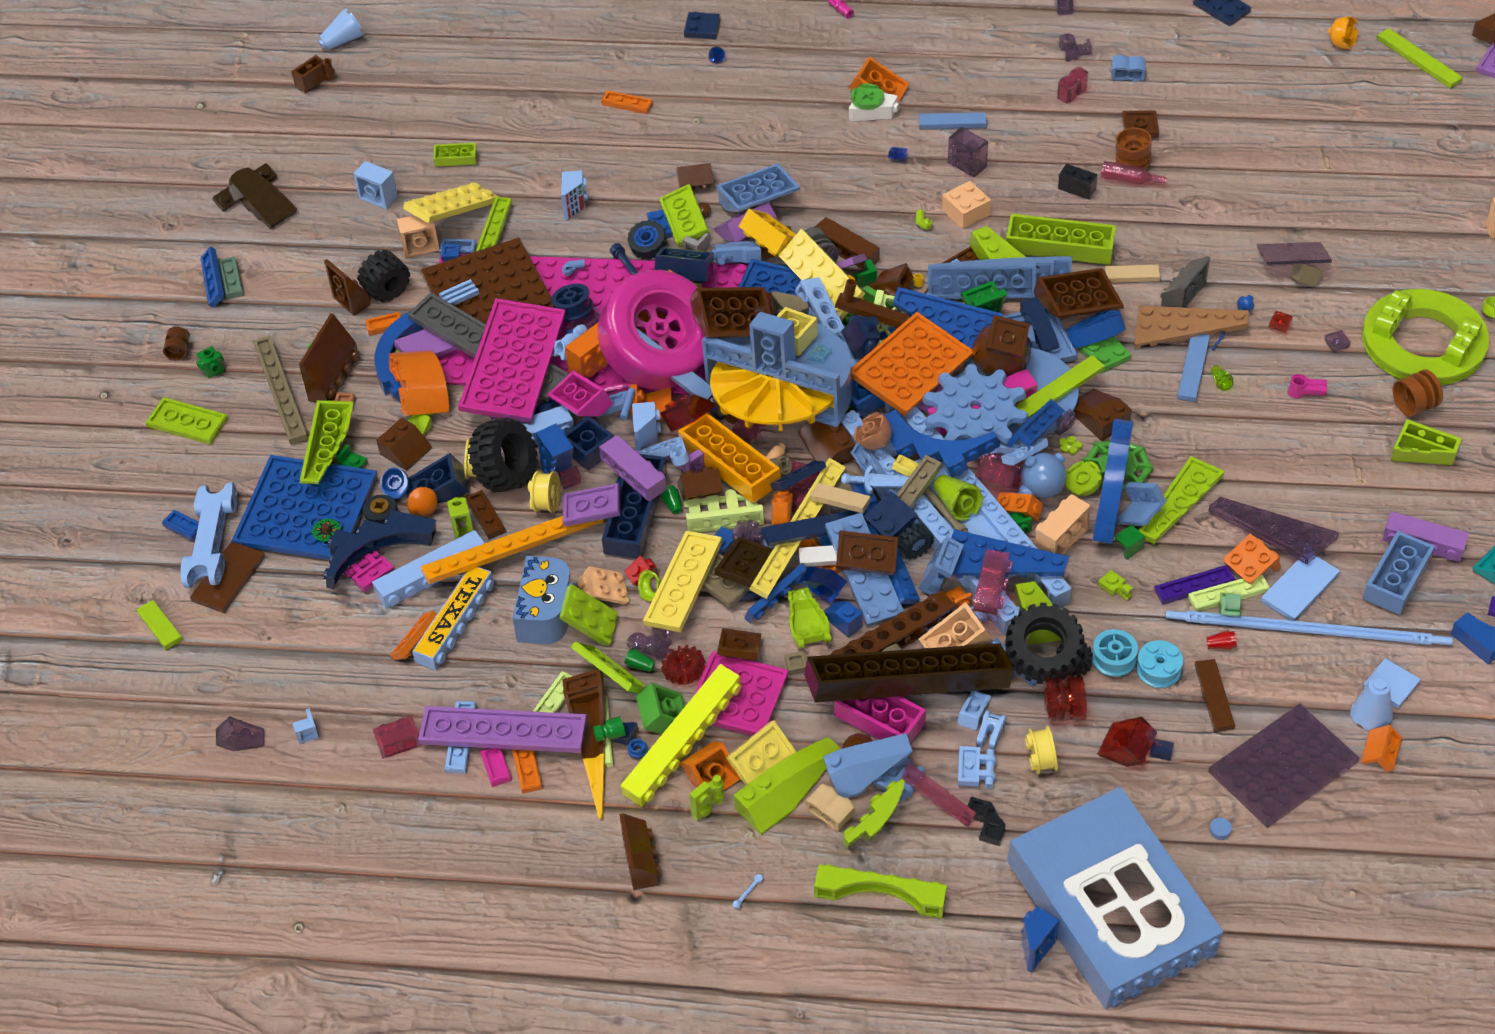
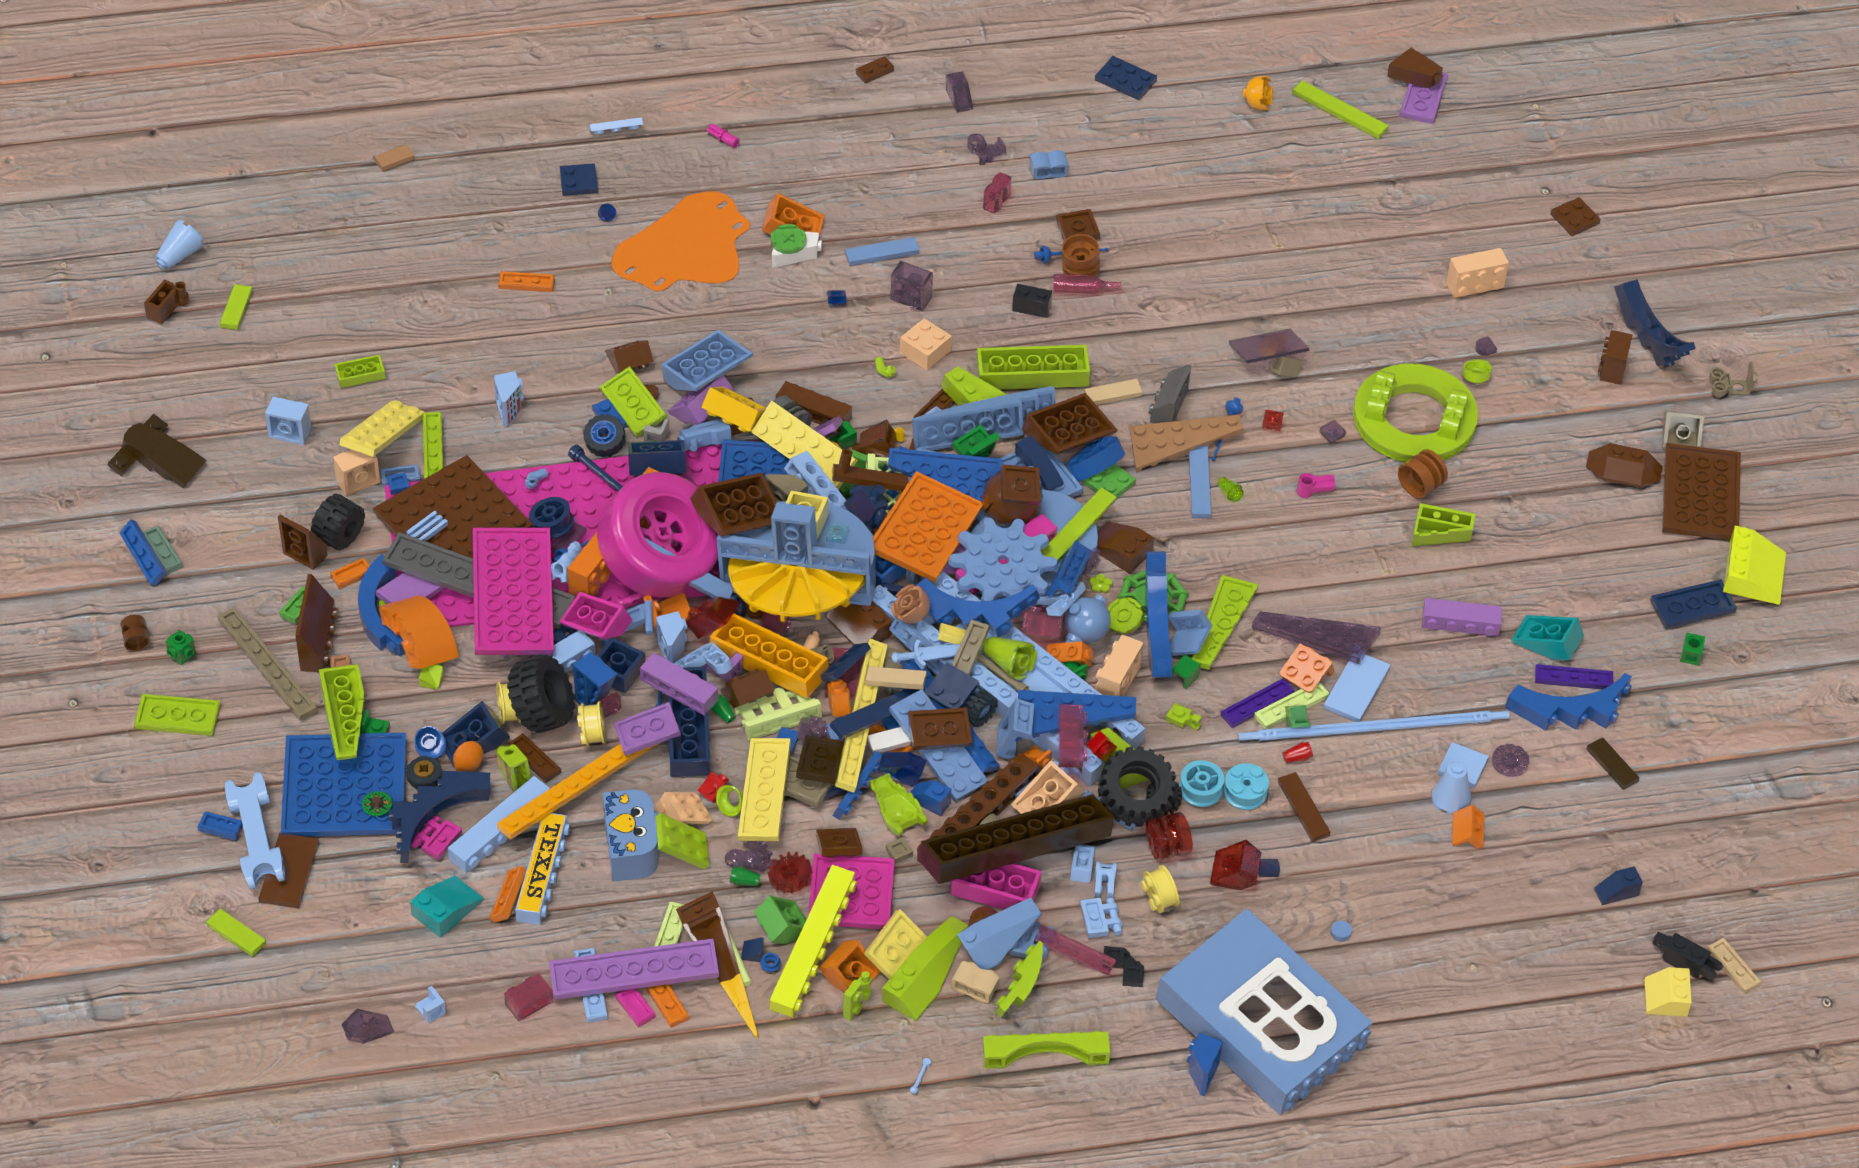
camera: 20 degrees left, 0 degrees up
(353, 634) = (444, 904): none -> teal slope
(372, 87) = (236, 307): none -> lime tile
(403, 444) = (423, 700): reddish brown slope -> none
(609, 667) = (720, 888): lime tile -> none
(613, 729) = (743, 947): green piece -> none
(639, 853) = (807, 1060): reddish brown slope -> none
(780, 92) = (685, 244): none -> orange piece
(1020, 597) = (1101, 745): none -> red bracket
(1103, 143) = (1045, 254): none -> blue sword
(1283, 765) = (1383, 860): clear purple plate -> none
(1398, 572) = (1446, 657): medium blue brick -> none
(1443, 687) = (1510, 760): none -> clear purple wheel

